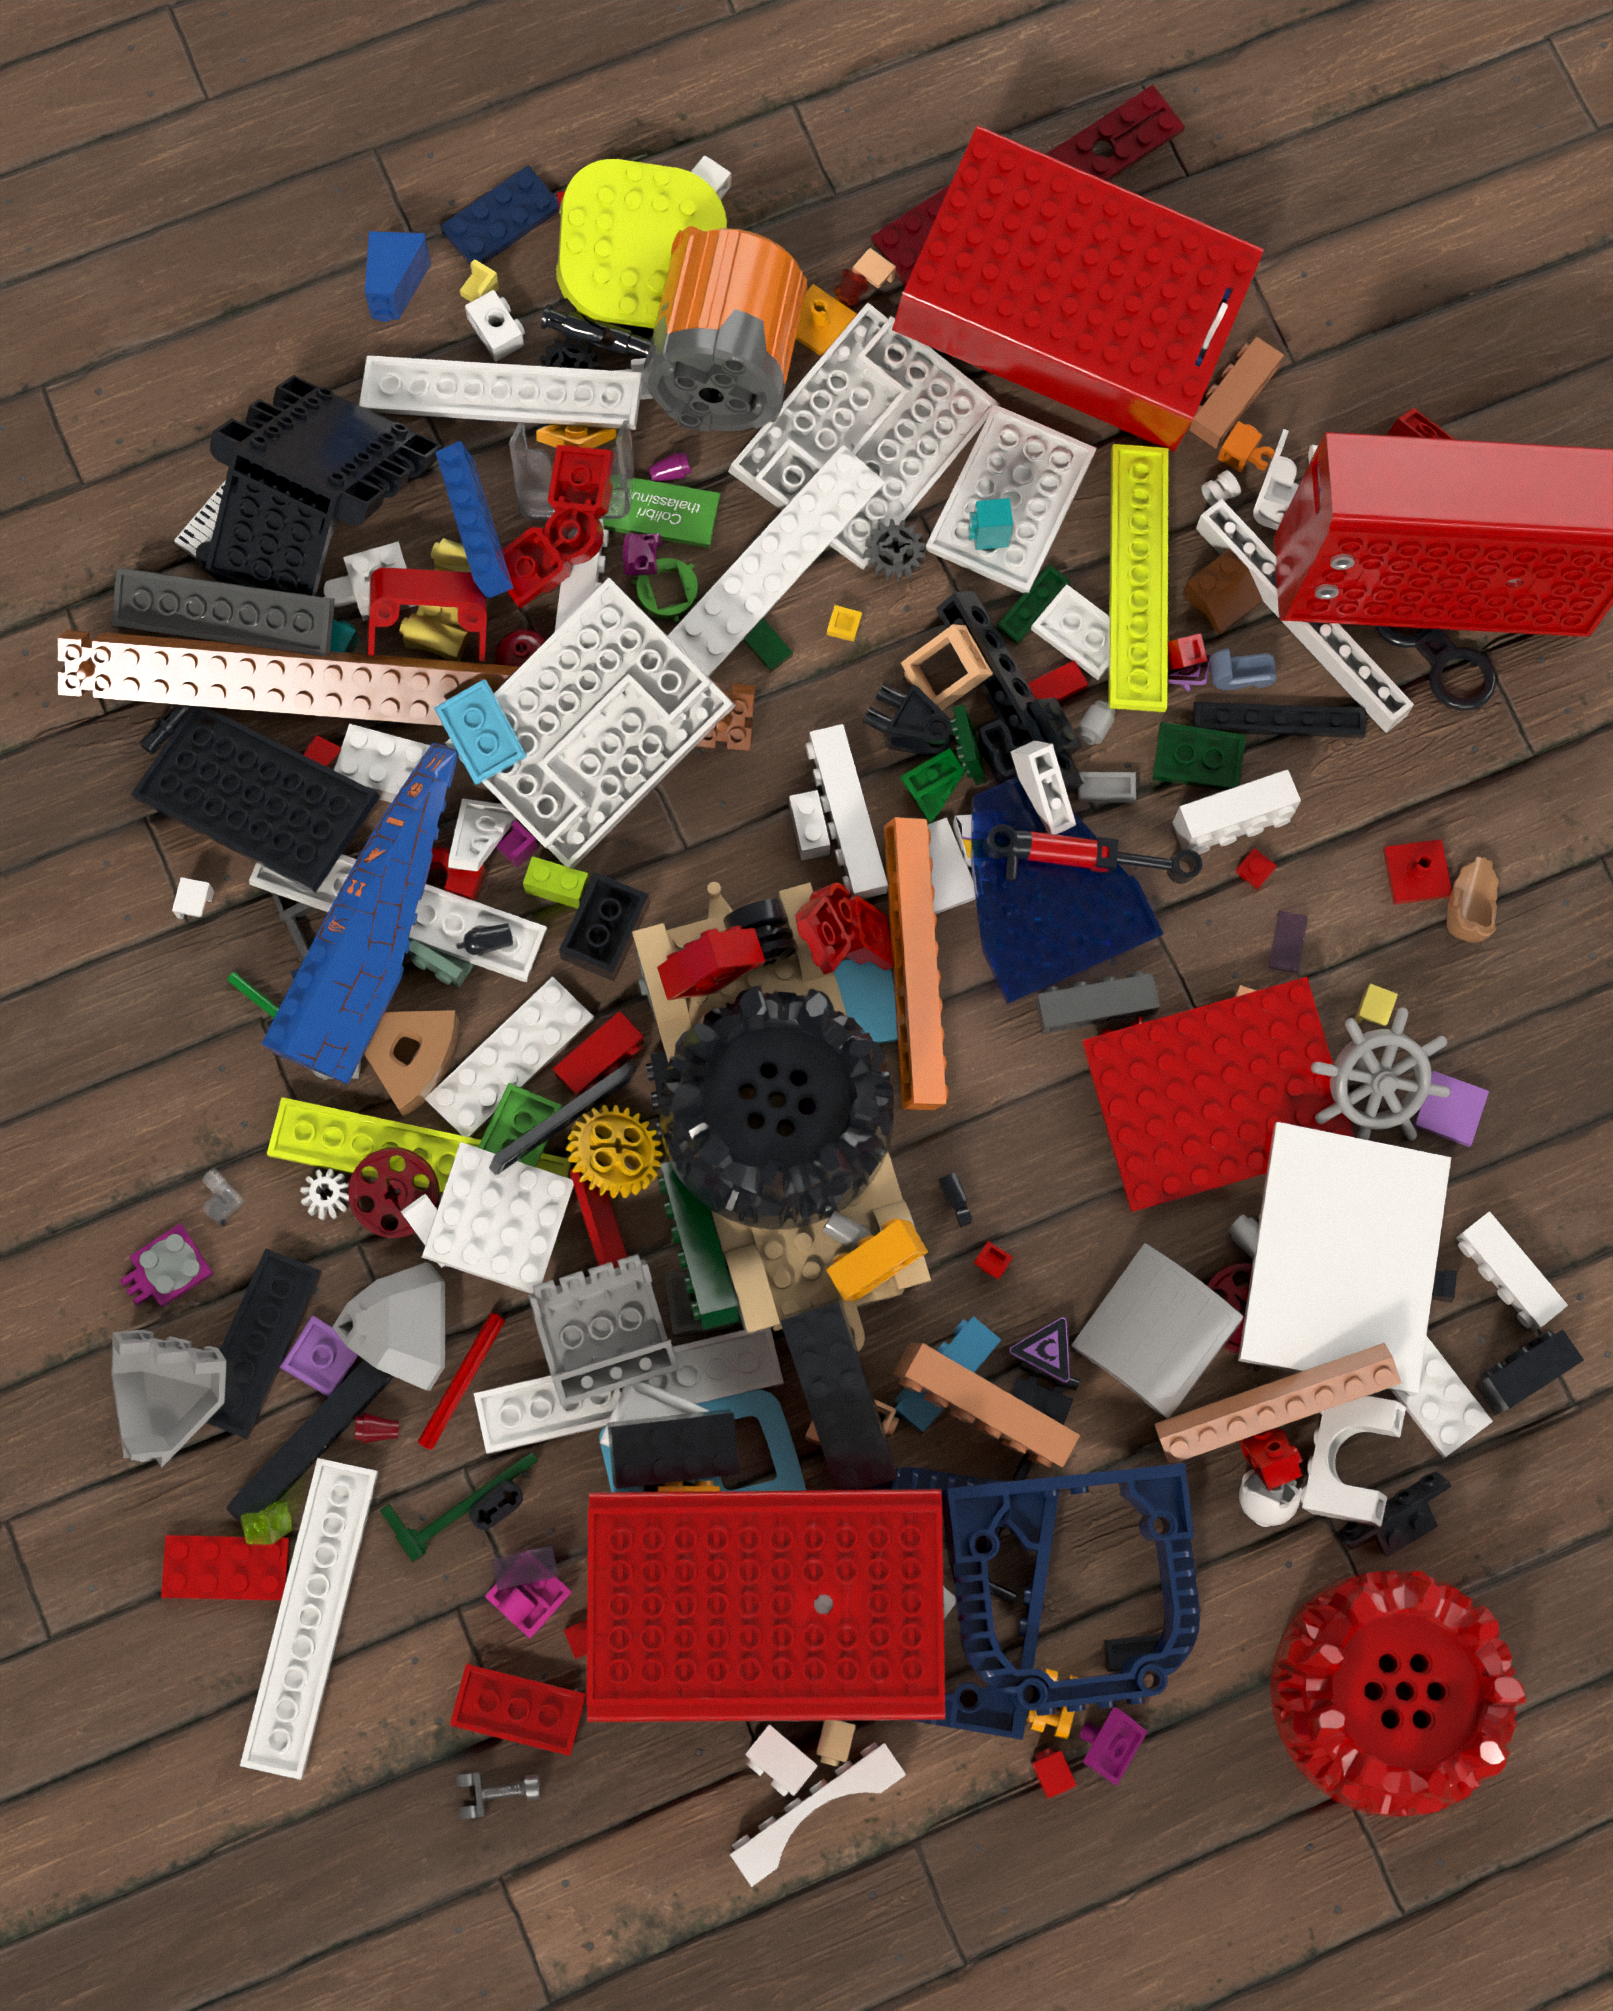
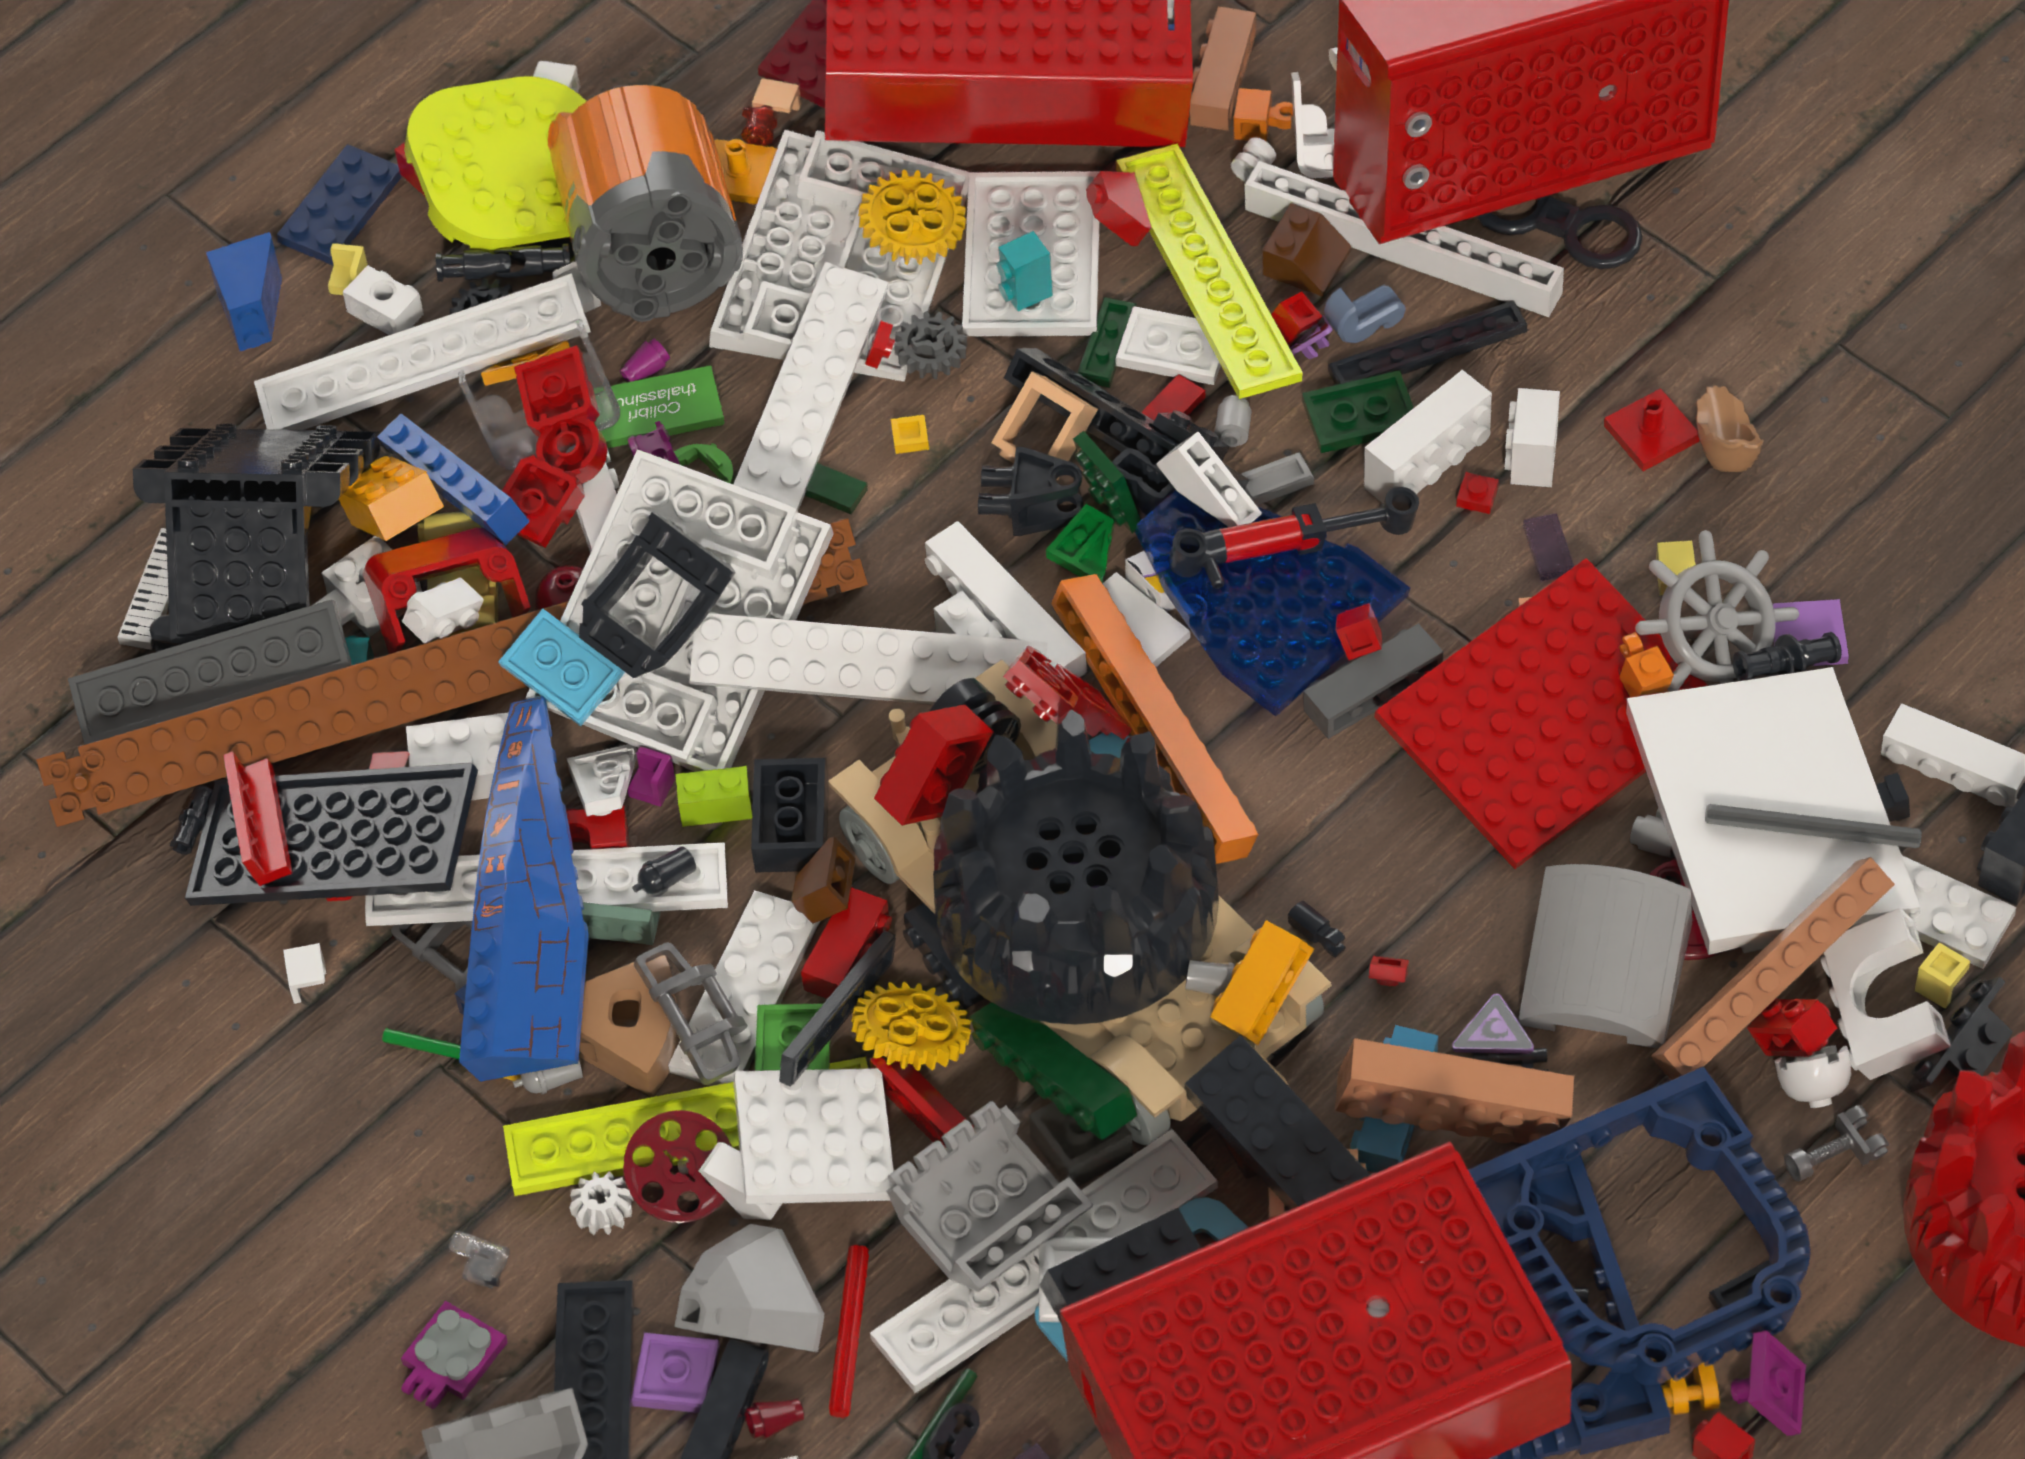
camera: 15 degrees left, 20 degrees down
(207, 754) = (258, 819): none -> fence
(413, 640) = (442, 610): none -> white brick
(420, 516) = (390, 498): none -> light orange brick
(441, 1096) = (690, 1042): none -> flat silver bar
(603, 1001) = (824, 882): none -> reddish brown slope
(604, 693) = (683, 557): none -> black wedge
(706, 821) = (841, 658): none -> white plate
(854, 537) = (881, 345): none -> red plate
(935, 405) = (912, 217): none -> yellow gear
(1096, 488) = (1119, 205): none -> red slope
(1103, 961) = (1359, 631): none -> red panel
(1224, 1565) = (1801, 1164): none -> flat silver bar
(1303, 1101) = (1643, 670): none -> orange brick
(1318, 845) = (1532, 437): none -> white brick
(1367, 1294) = (1813, 826): none -> dark grey axle
(1407, 1457) = (1940, 974): none -> light yellow panel
(1420, 1132) = (1787, 656): none -> black piece

